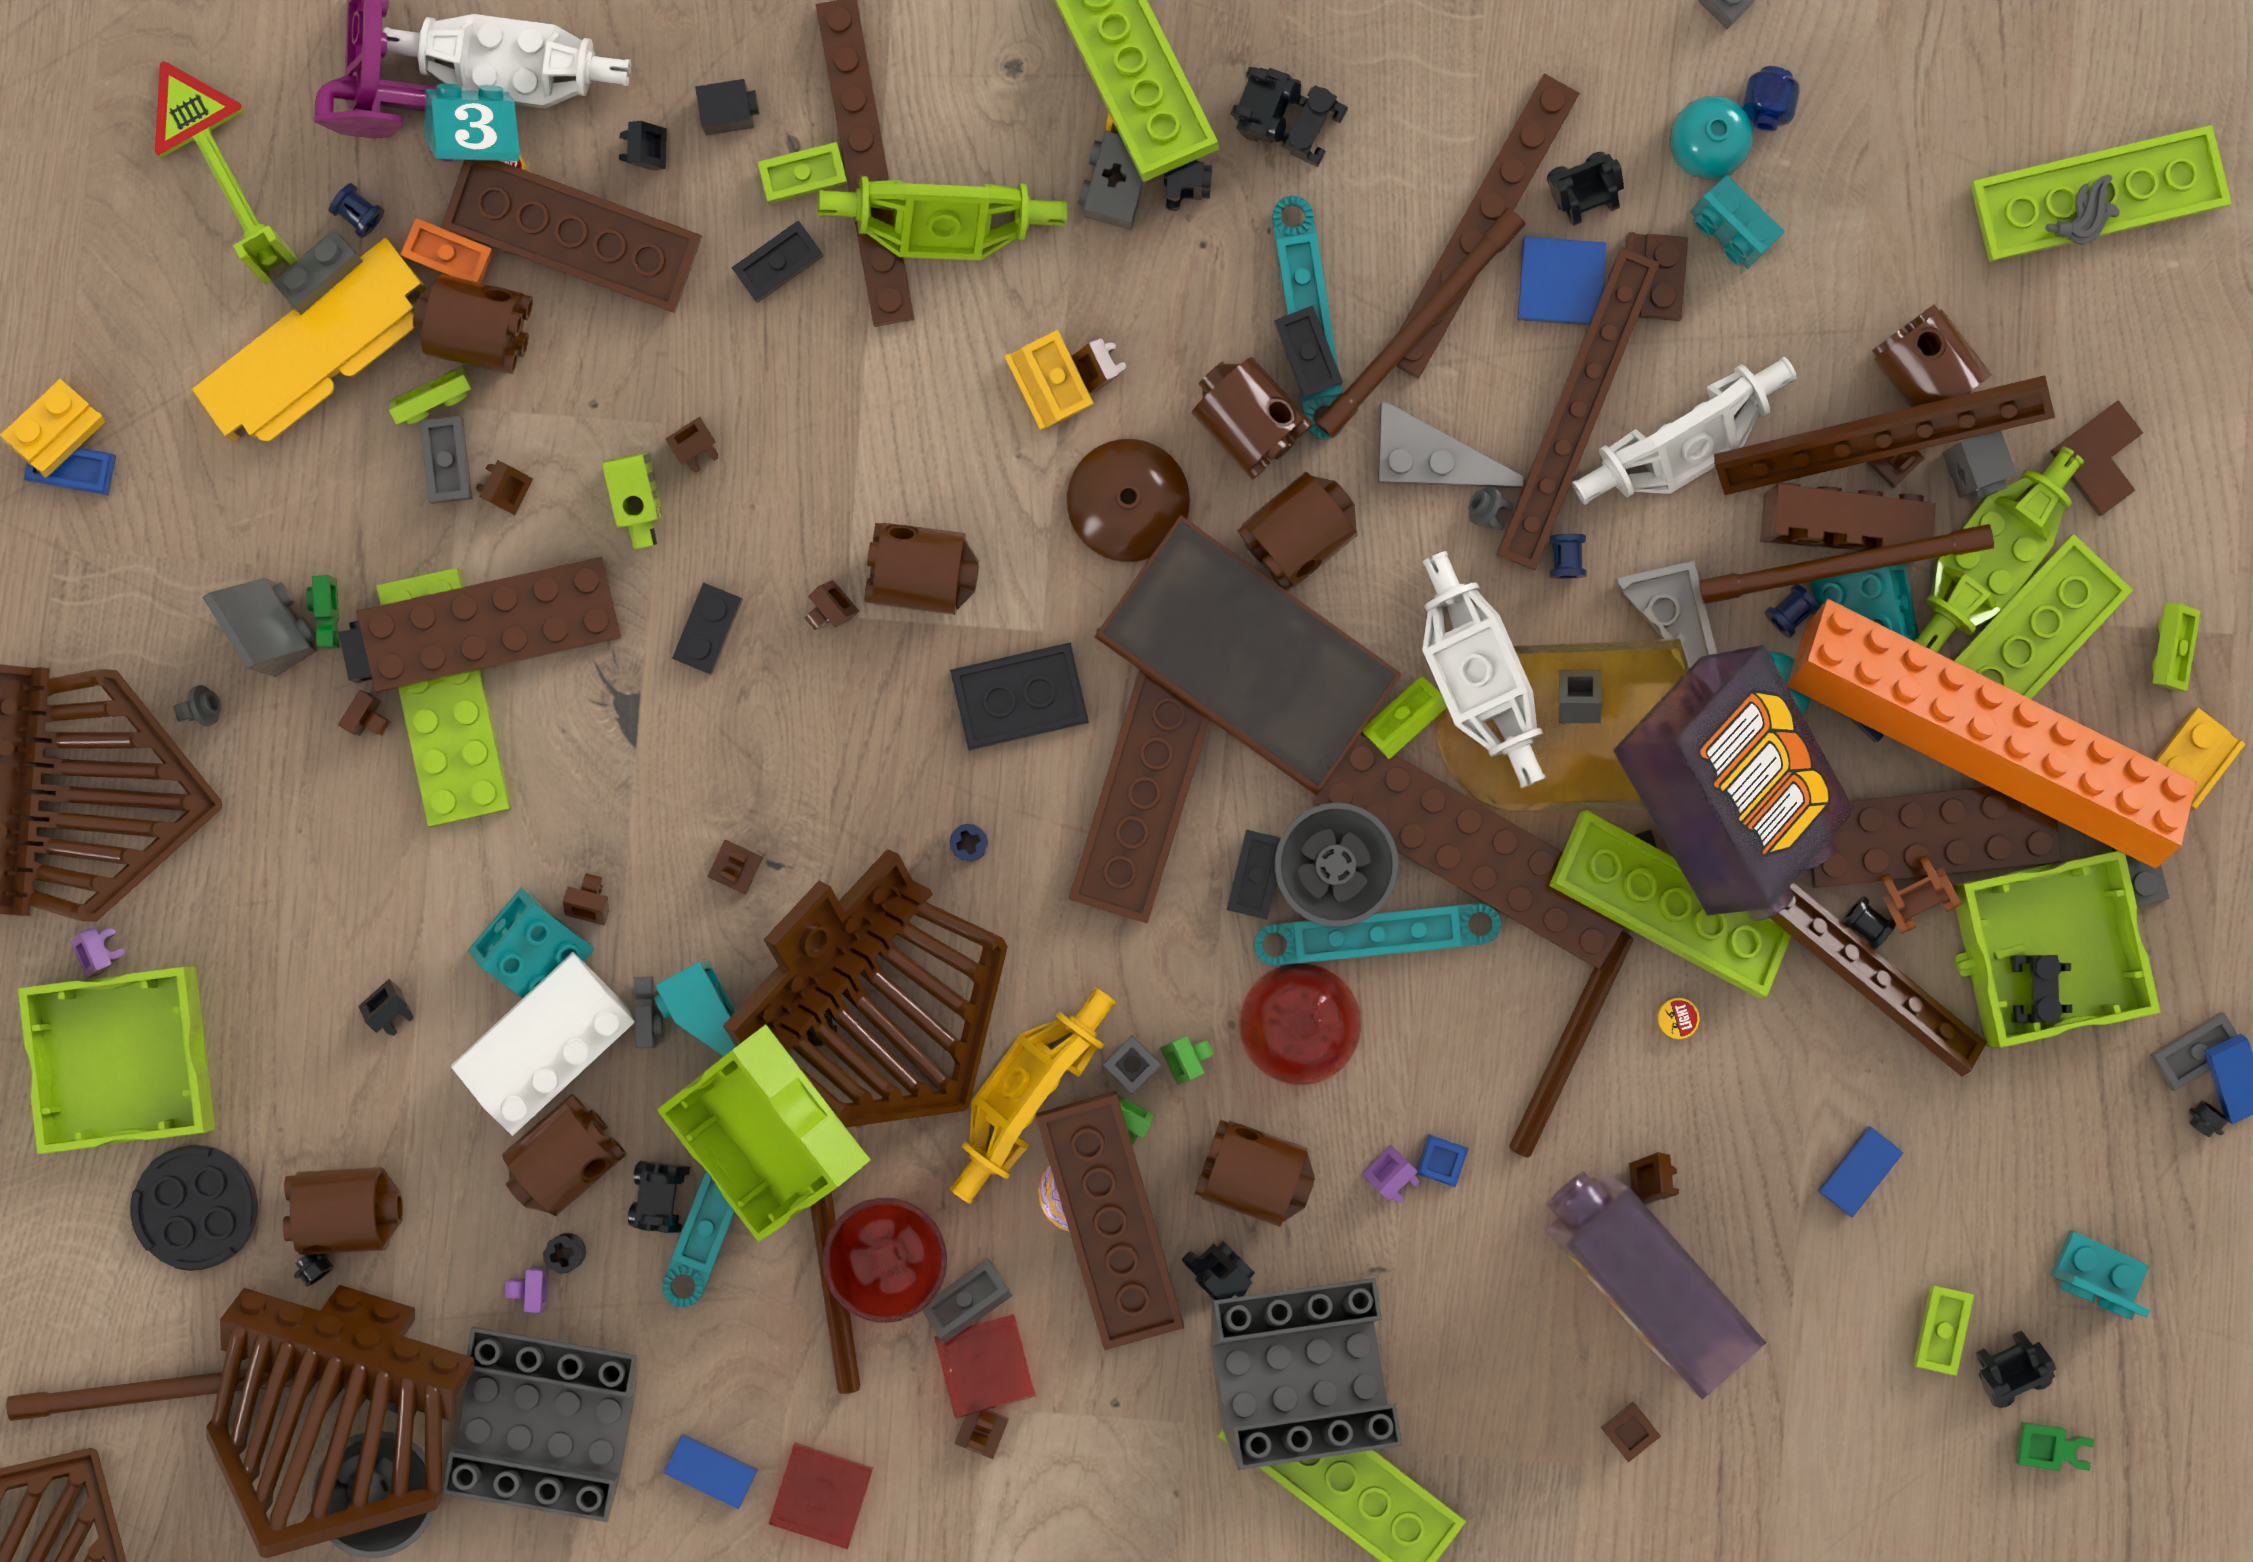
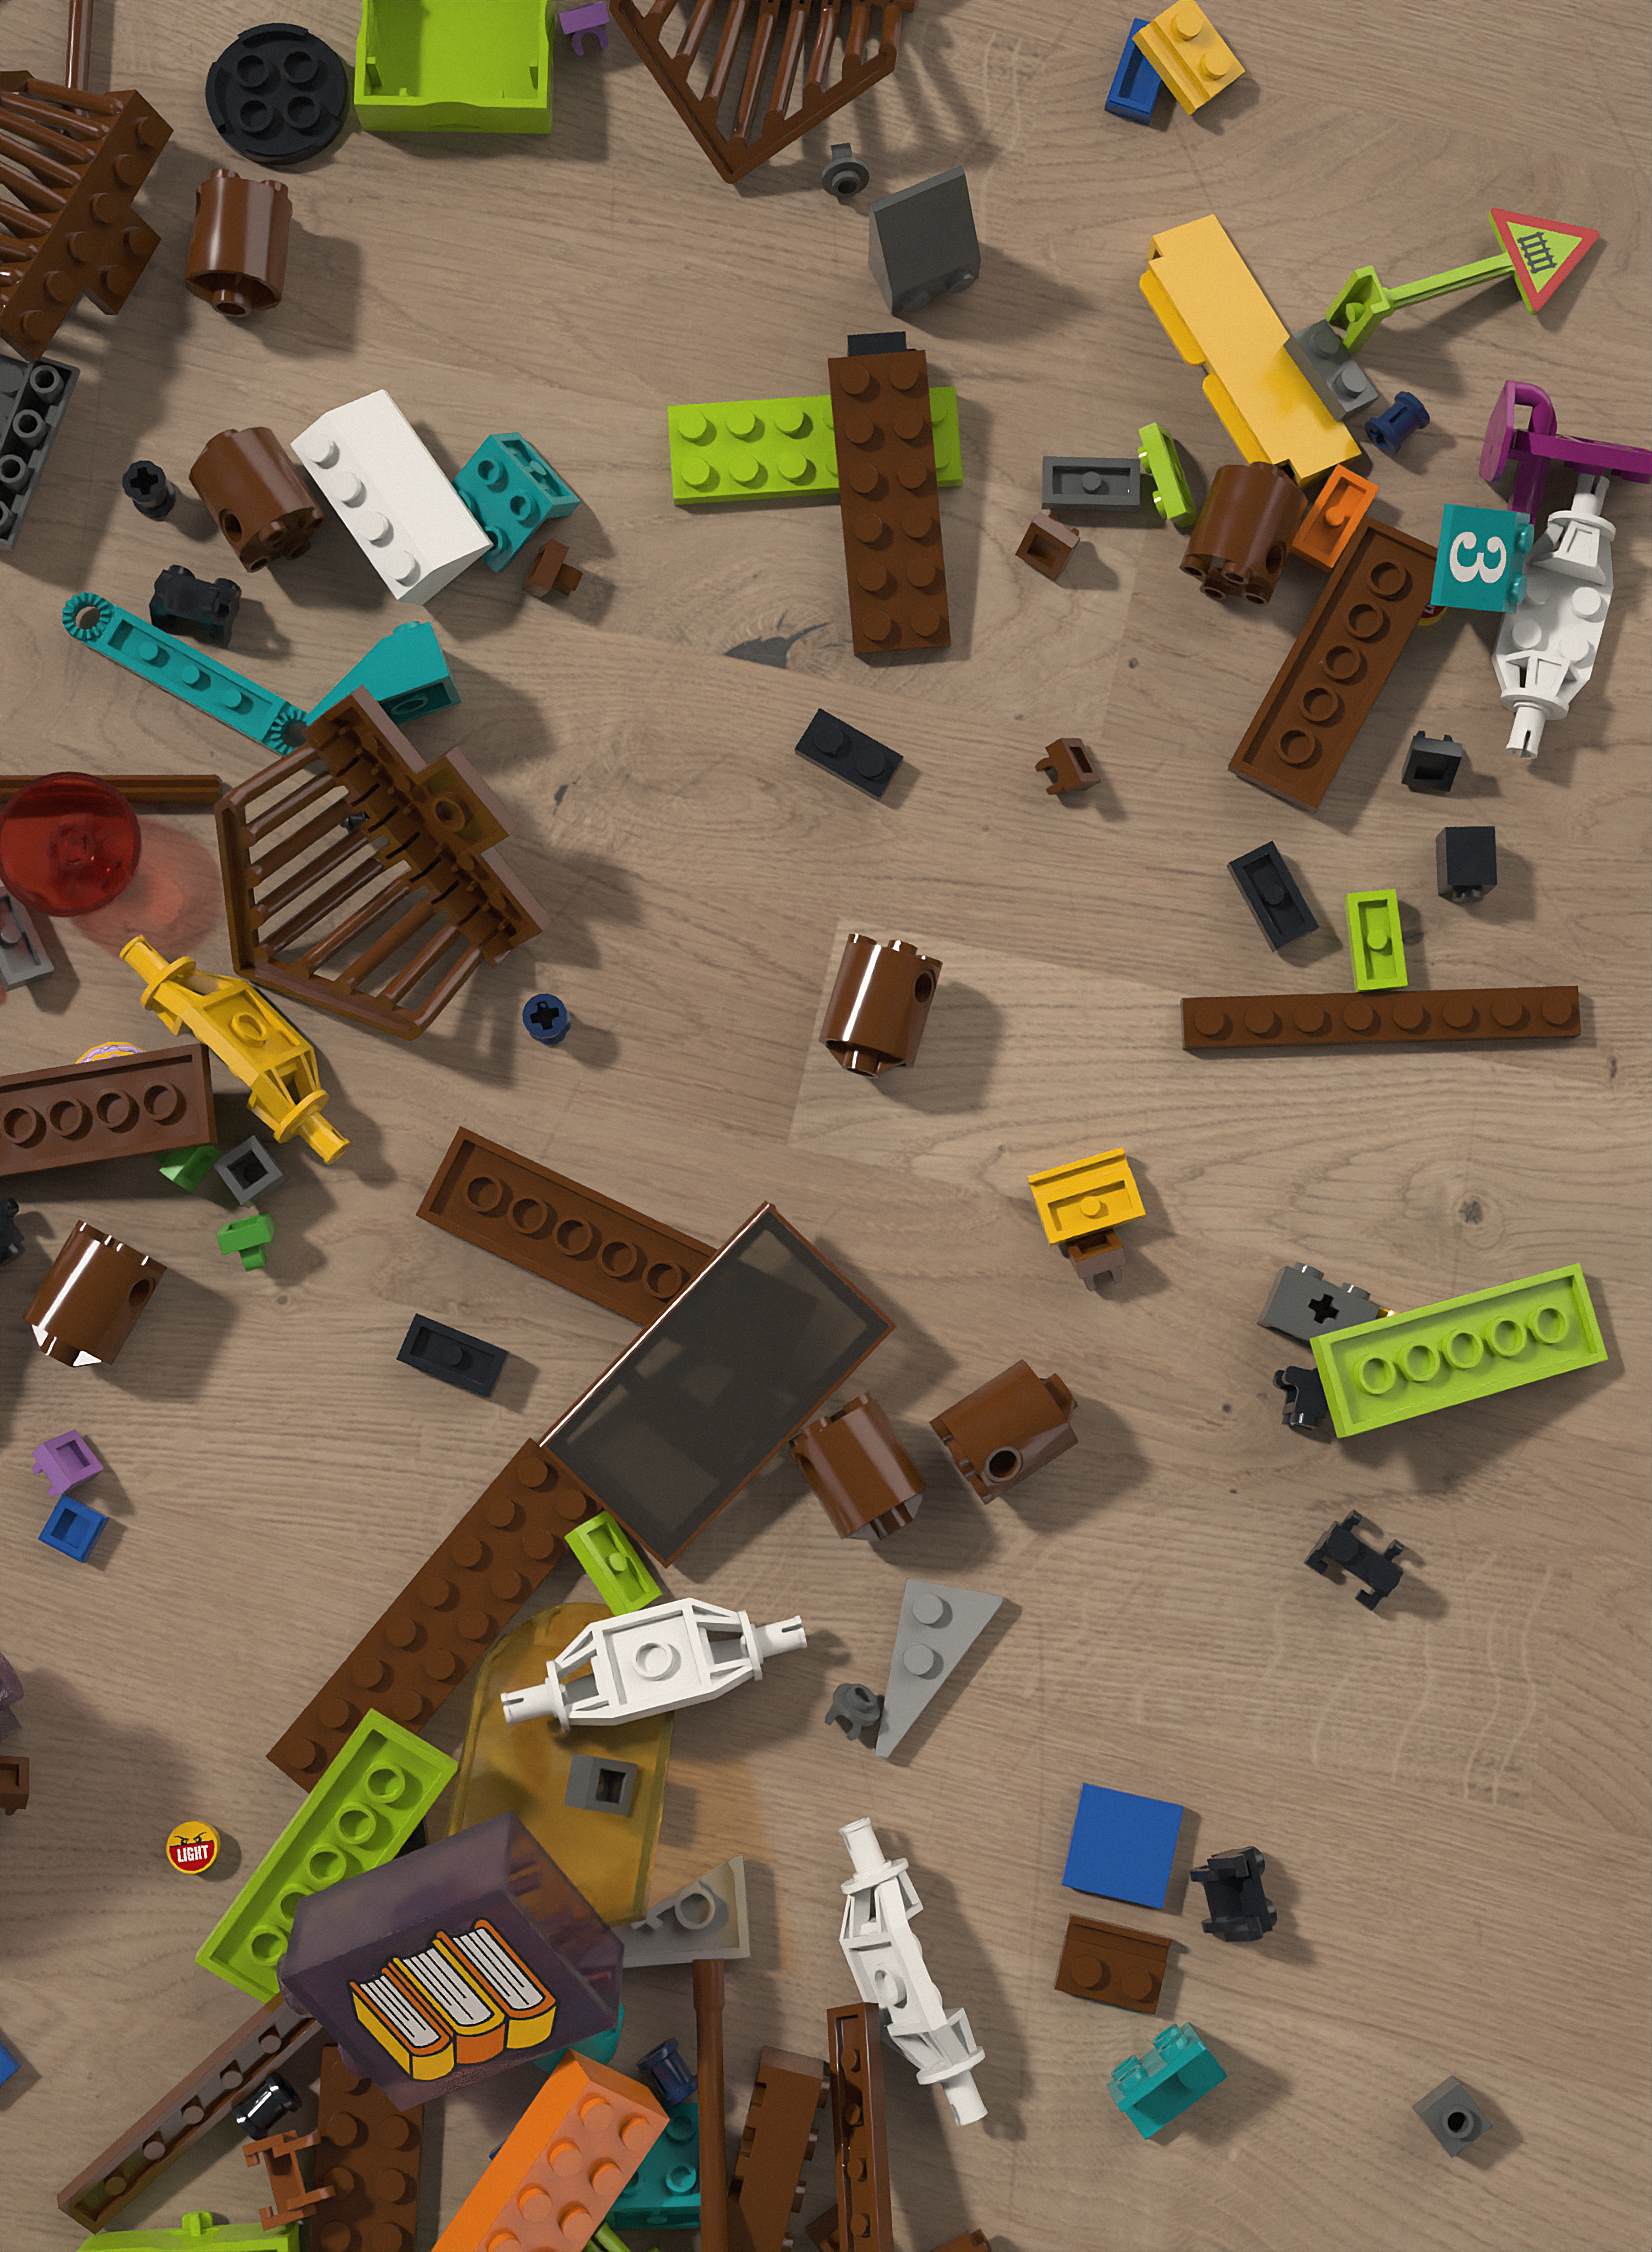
camera: 105 degrees right, 5 degrees down
(313, 1268) = (182, 210): black plate -> none
(323, 600) = (939, 325): green plate -> none
(362, 714) = (805, 351): reddish brown tile -> none
(383, 1007) = (468, 328): black tile -> none
(532, 1289) = (115, 446): medium lavender tile -> none
(634, 477) = (1034, 693): lime torso -> none
(647, 1023) = (389, 614): dark grey plate -> none
(735, 867) = (564, 747): reddish brown tile -> none
(763, 1134) = (229, 718): lime tile -> none
(830, 607) = (852, 898): reddish brown tile -> none
(941, 218) = (1297, 1094): lime plate -> none
(1019, 696) = (712, 1106): black tile -> none
(1122, 529) = (937, 1307): reddish brown dish -> none
(1265, 103) = (1389, 1508): black piece -> none
(1298, 992) = (290, 1397): clear red piece -> none
(1304, 287) = (1120, 1522): teal plate -> none
(1308, 352) = (1075, 1513): black plate -> none
(1347, 403) = (1179, 1763): reddish brown piece -> none
(1355, 838) = (416, 1440): dark grey piece -> none
(1379, 935) = (357, 1491): teal plate -> none
(1499, 191) = (1205, 1756): reddish brown plate -> none
(1568, 556) = (779, 1798): dark blue bush -> none
(1569, 1049) = (178, 1704): reddish brown axle -> none
(1577, 408) = (961, 1840): reddish brown plate -> none
(1711, 137) = (1276, 2064): teal cylinder -> none
(1771, 98) = (1316, 2149): clear blue head -> none

